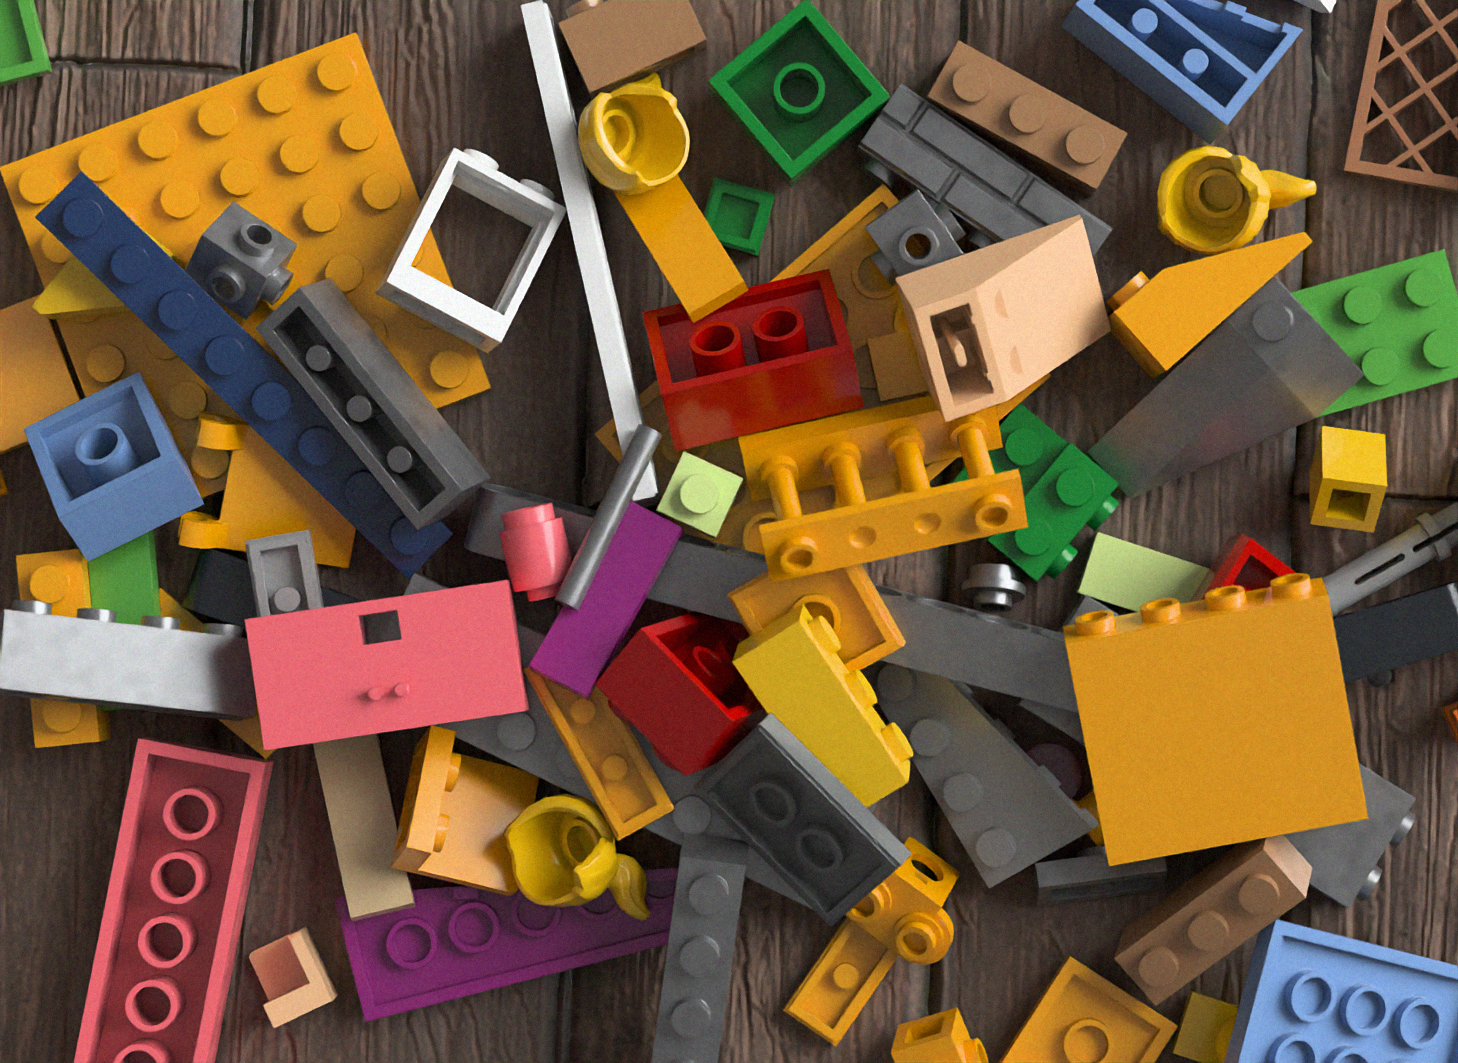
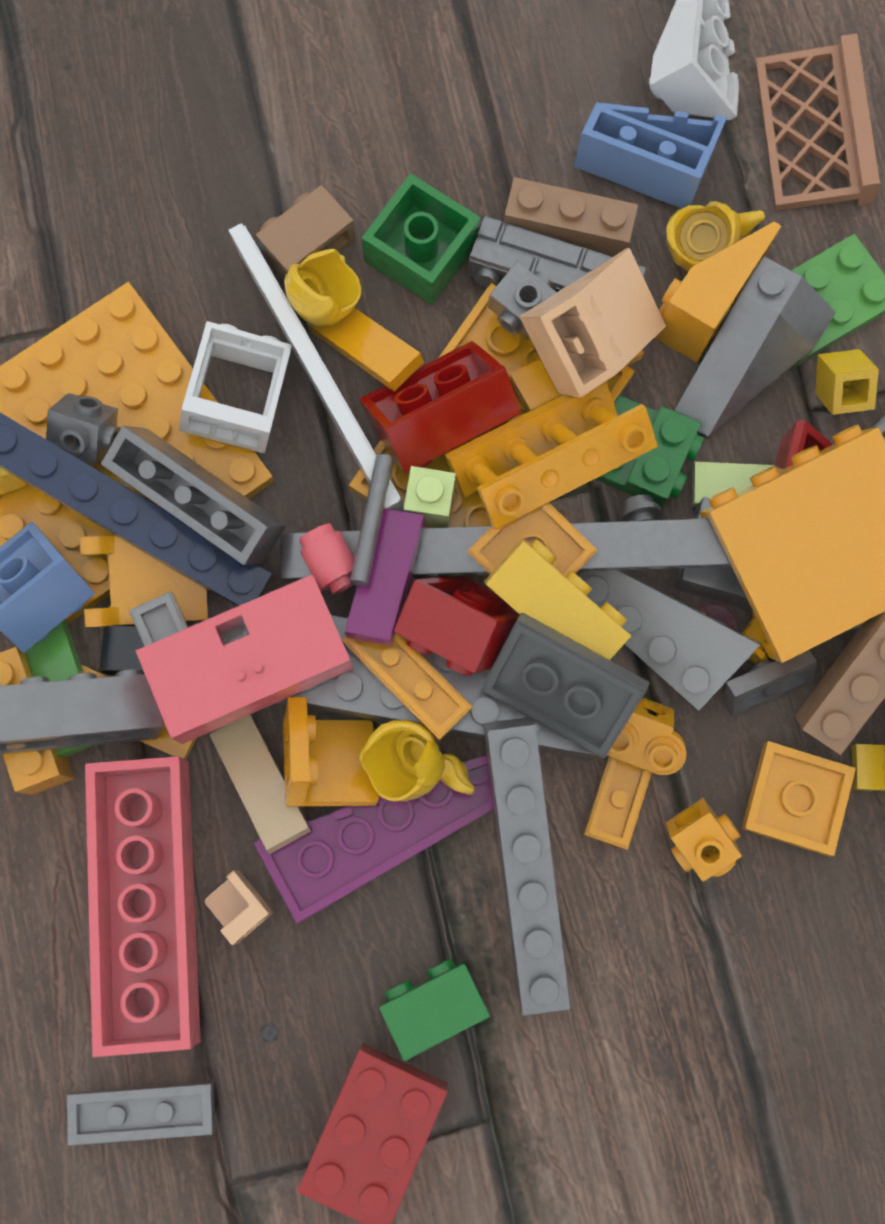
camera: 20 degrees left, 10 degrees down
(738, 215) = (406, 325): green tile -> none

